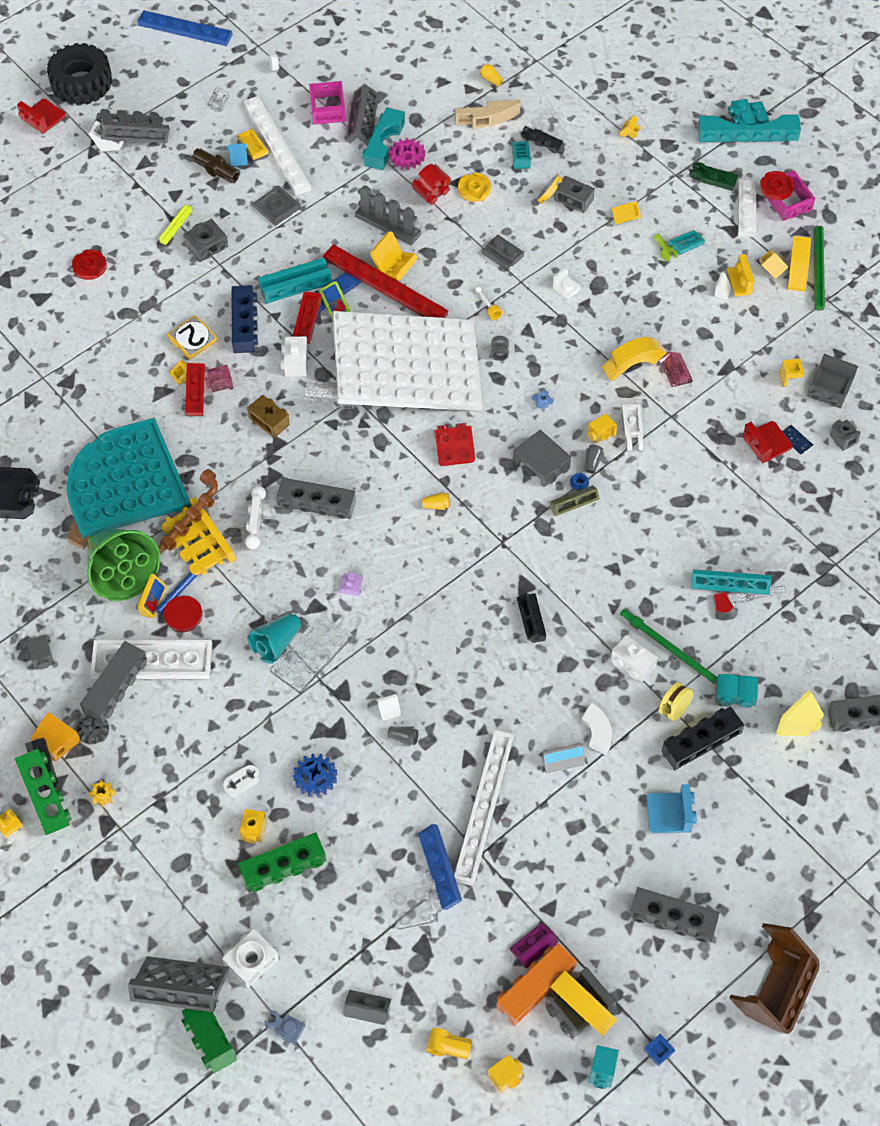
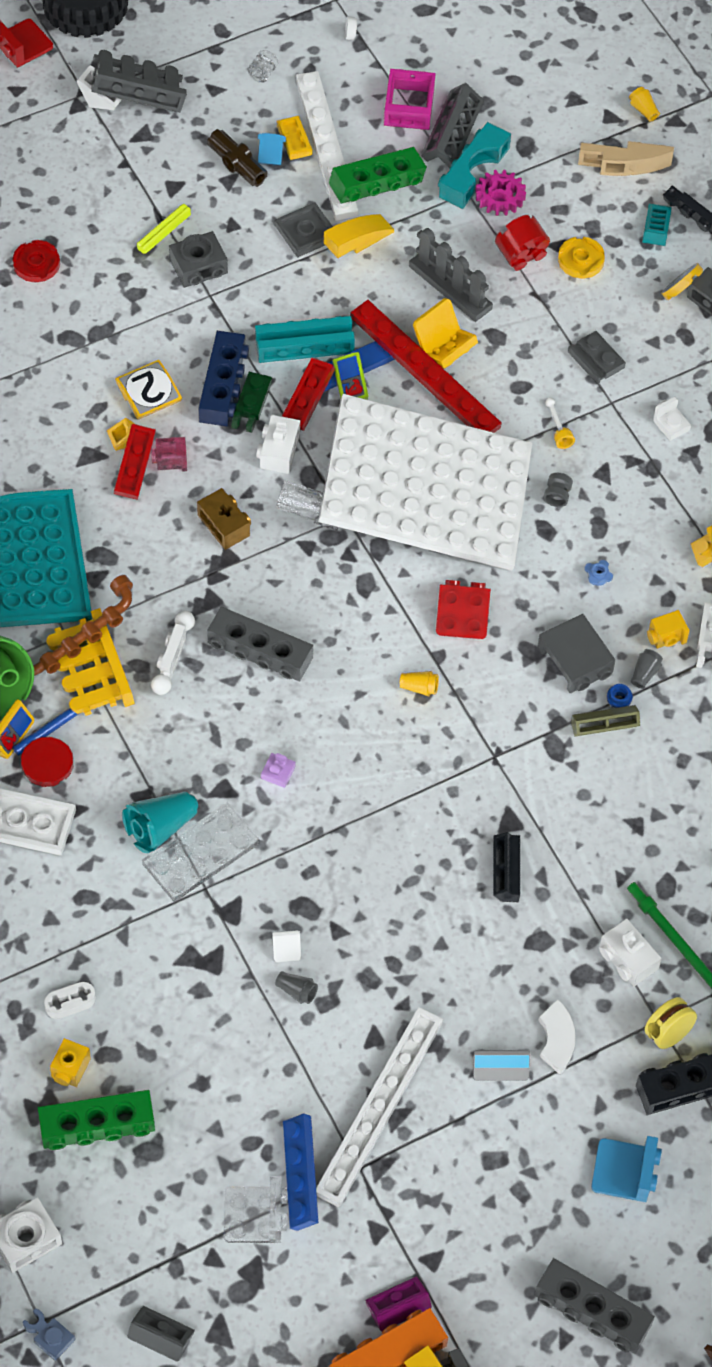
camera: 10 degrees right, 0 degrees up
(268, 330) = (252, 400): none -> dark green hinge
(309, 769) = (163, 1004): blue gear -> none
(313, 201) = (356, 234): none -> yellow slope
(318, 158) = (377, 175): none -> green brick

